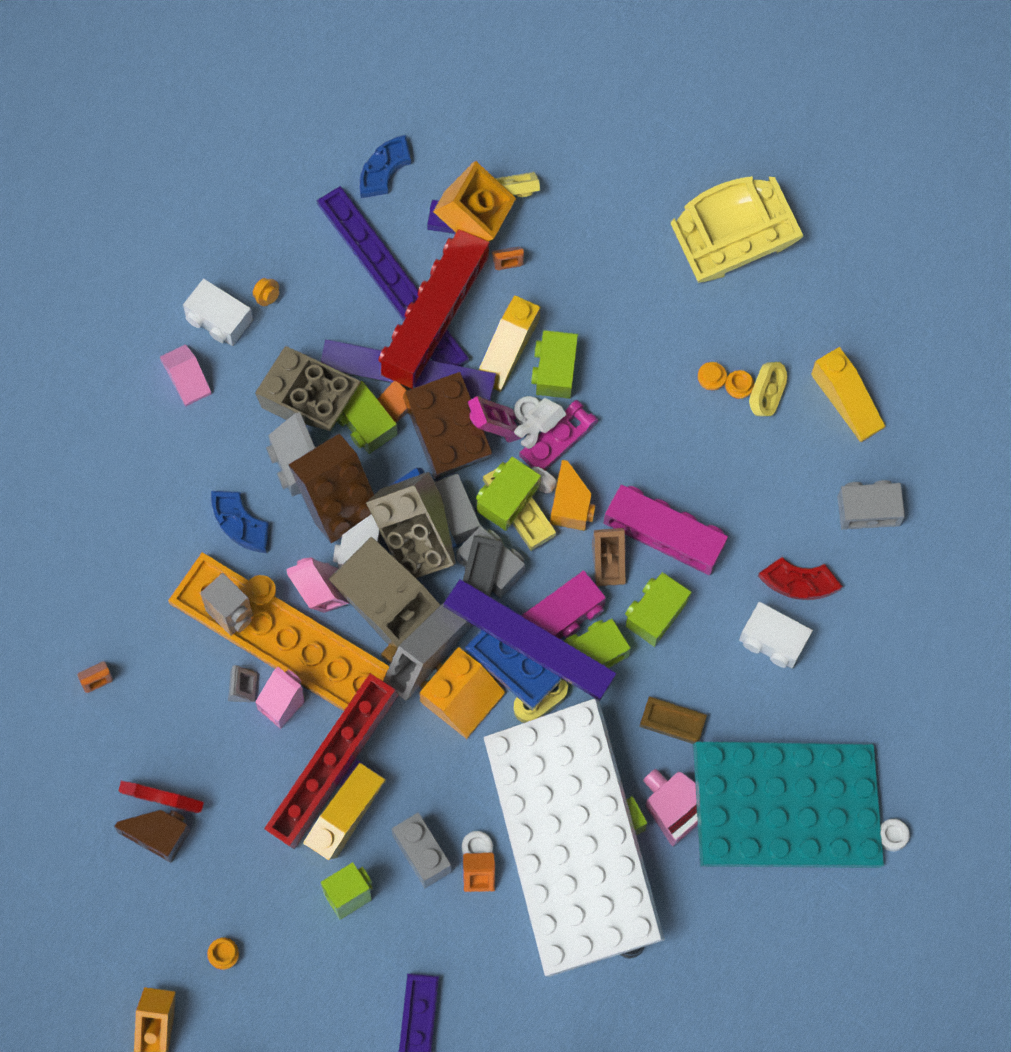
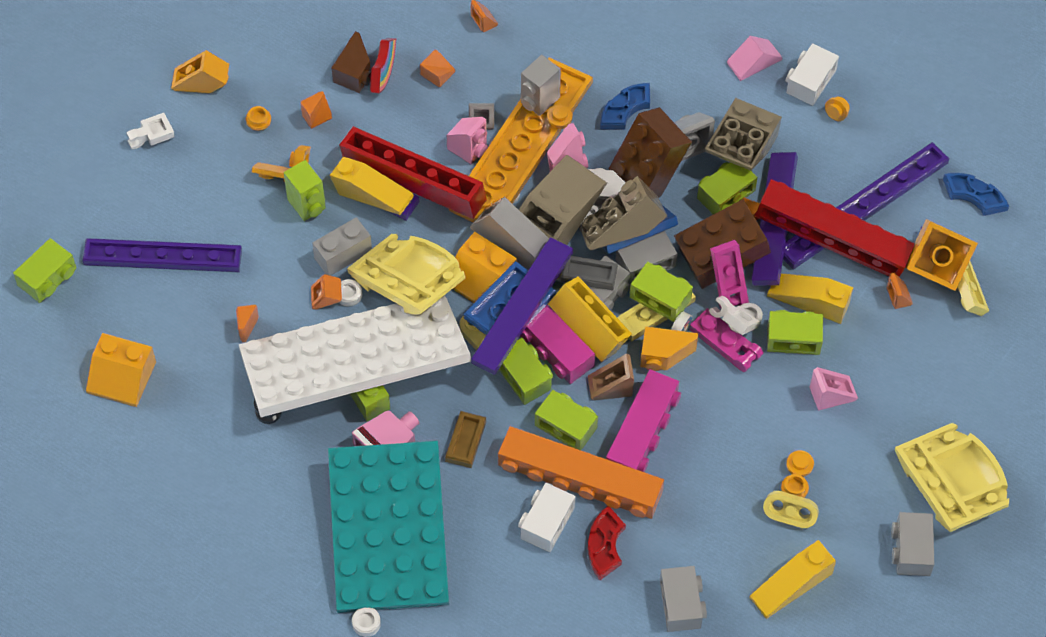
camera: 90 degrees right, 10 degrees down
(169, 734) = (436, 69): none -> orange slope
(219, 881) = (316, 109): none -> orange slope
(308, 918) = (270, 171): none -> light orange bracket
(465, 771) = (408, 272): none -> light yellow slope
(516, 967) = (246, 319): none -> orange slope
(540, 572) = (589, 318): none -> yellow brick
(626, 336) = (831, 388): none -> bright pink slope
(721, 599) = (580, 472): none -> orange brick
(809, 275) = (913, 544): none -> light grey brick

